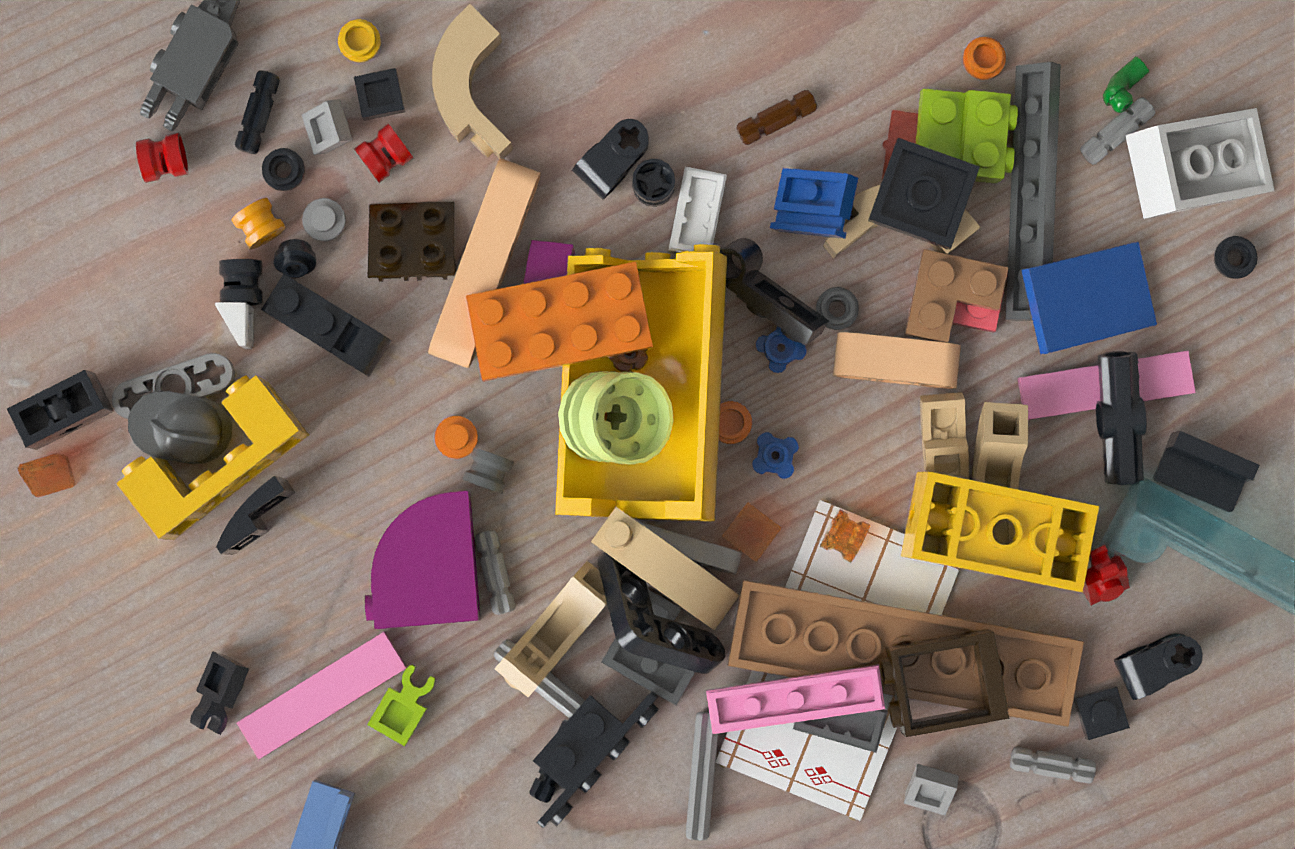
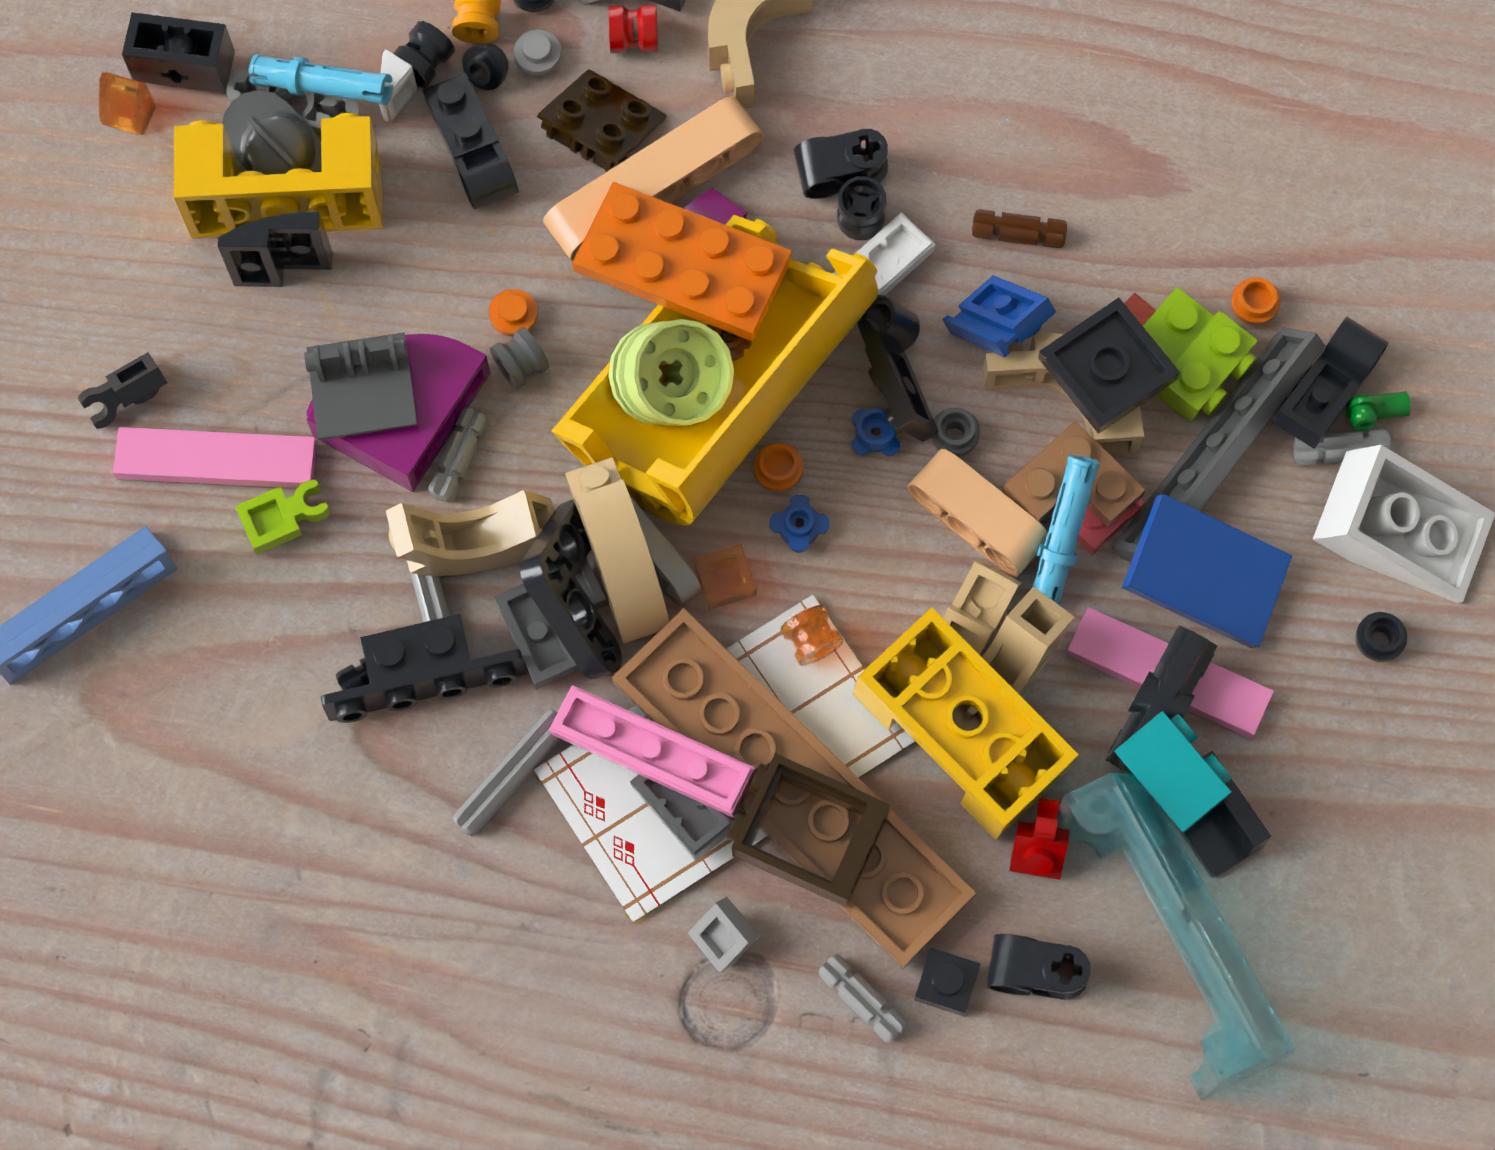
camera: 40 degrees right, 15 degrees down
(170, 367) = (302, 76): none -> medium azure pin
(397, 579) = (361, 386): none -> dark grey hinge
(976, 353) = (1067, 519): none -> medium azure pin
(1082, 90) = (1331, 382): none -> black plate
(1169, 469) = (1174, 771): none -> teal brick

